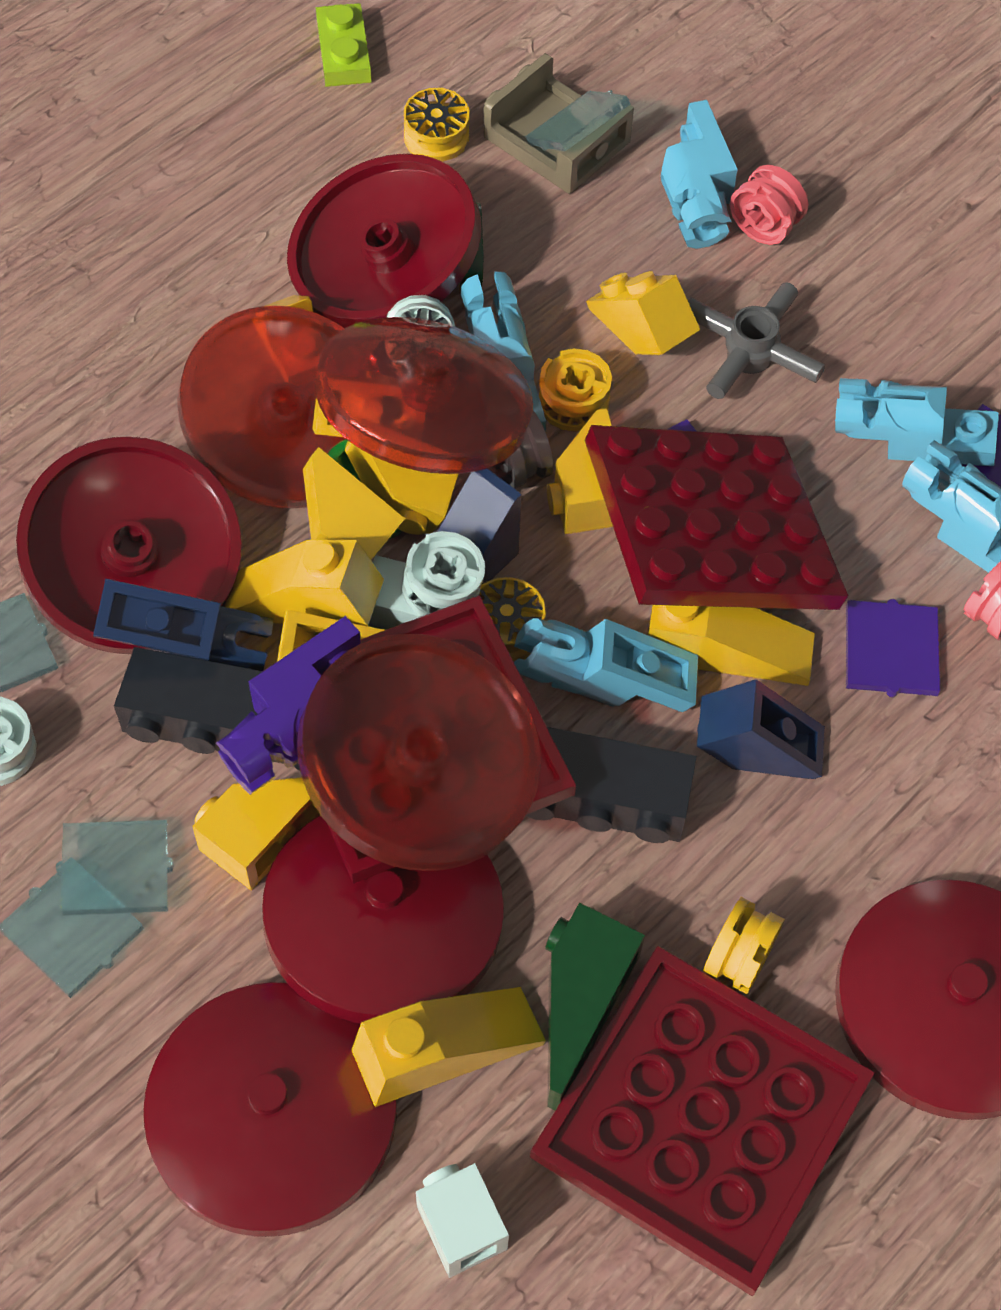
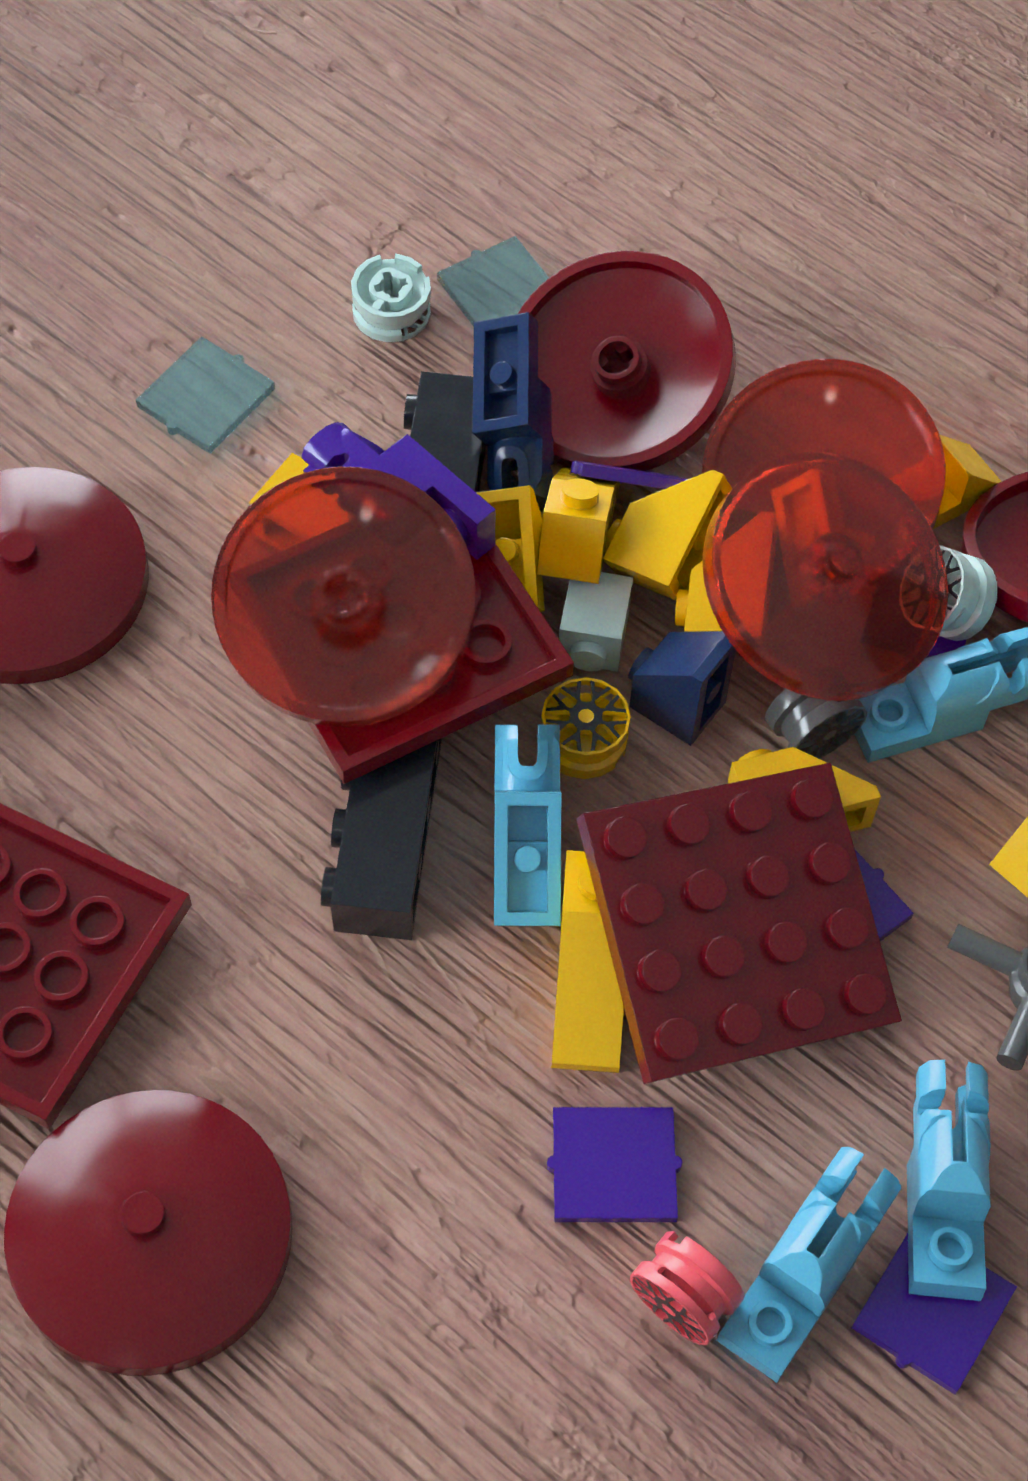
camera: 85 degrees right, 0 degrees up
(114, 867) = (263, 414): clear light blue piece -> none
(268, 544) = (624, 475): none -> dark purple piece
(382, 938) = (168, 659): dark red dish -> none
(427, 575) = (602, 631): light aqua wheel -> none
(442, 1041) = (77, 700): yellow slope -> none
(560, 388) = (924, 779): yellow wheel -> none
(586, 976) = (144, 823): dark green slope -> none
(743, 945) = (189, 978): yellow wheel -> none
(760, 732) = (461, 1002): dark blue slope -> none

